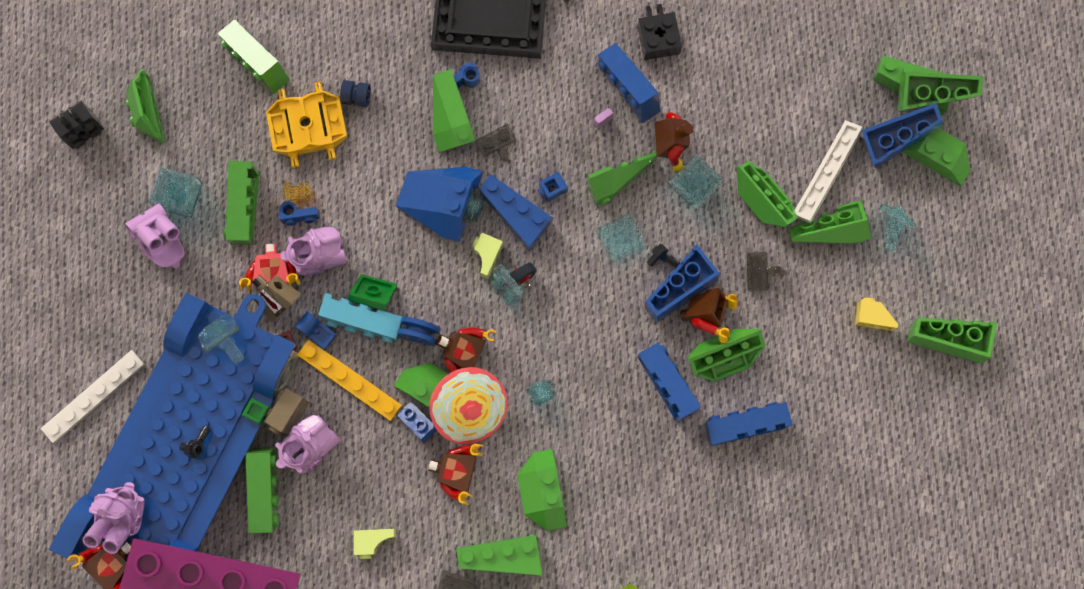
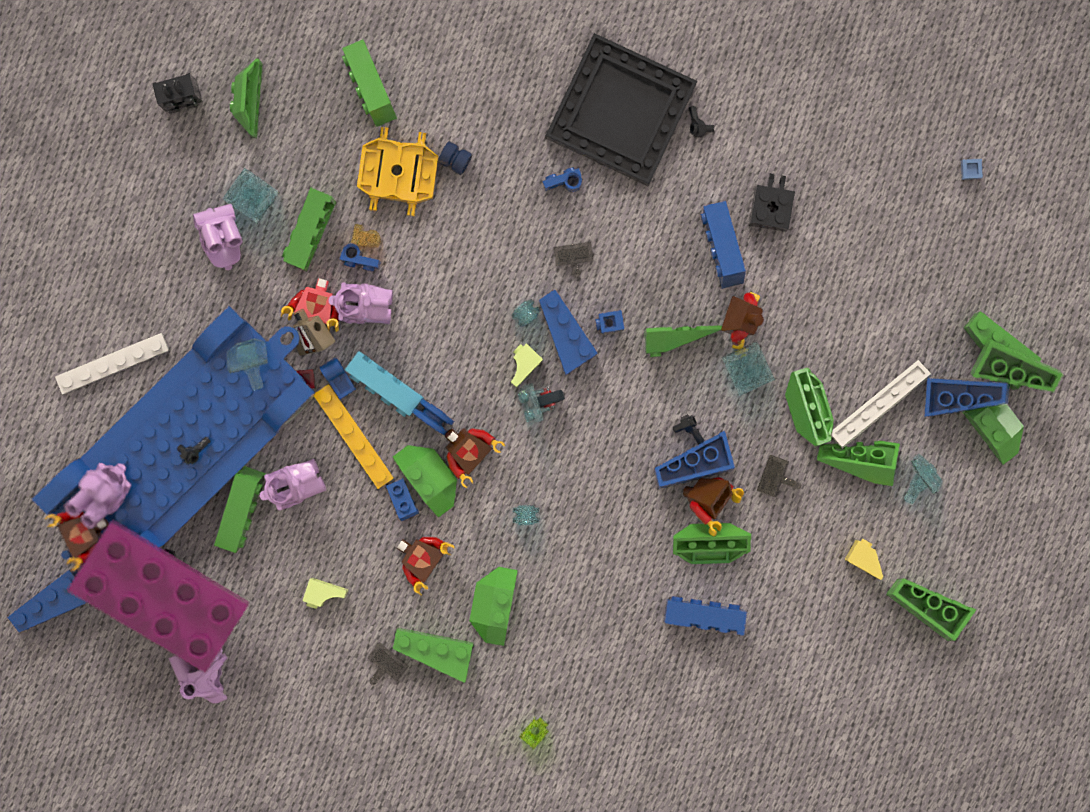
camera: 25 degrees right, 10 degrees up
(255, 411) = (257, 438): green tile -> none
(285, 412) = (284, 448): dark tan brick -> none
(372, 292) = (403, 362): green plate -> none
(439, 198) = (498, 293): blue wedge -> none
(450, 119) = (536, 220): bright green wedge -> none
(468, 405) = (454, 504): dish -> none
(603, 118) = (684, 271): lavender tile -> none
(620, 238) = (657, 394): clear light blue plate -> none
(668, 382) = (647, 550): blue wedge -> none

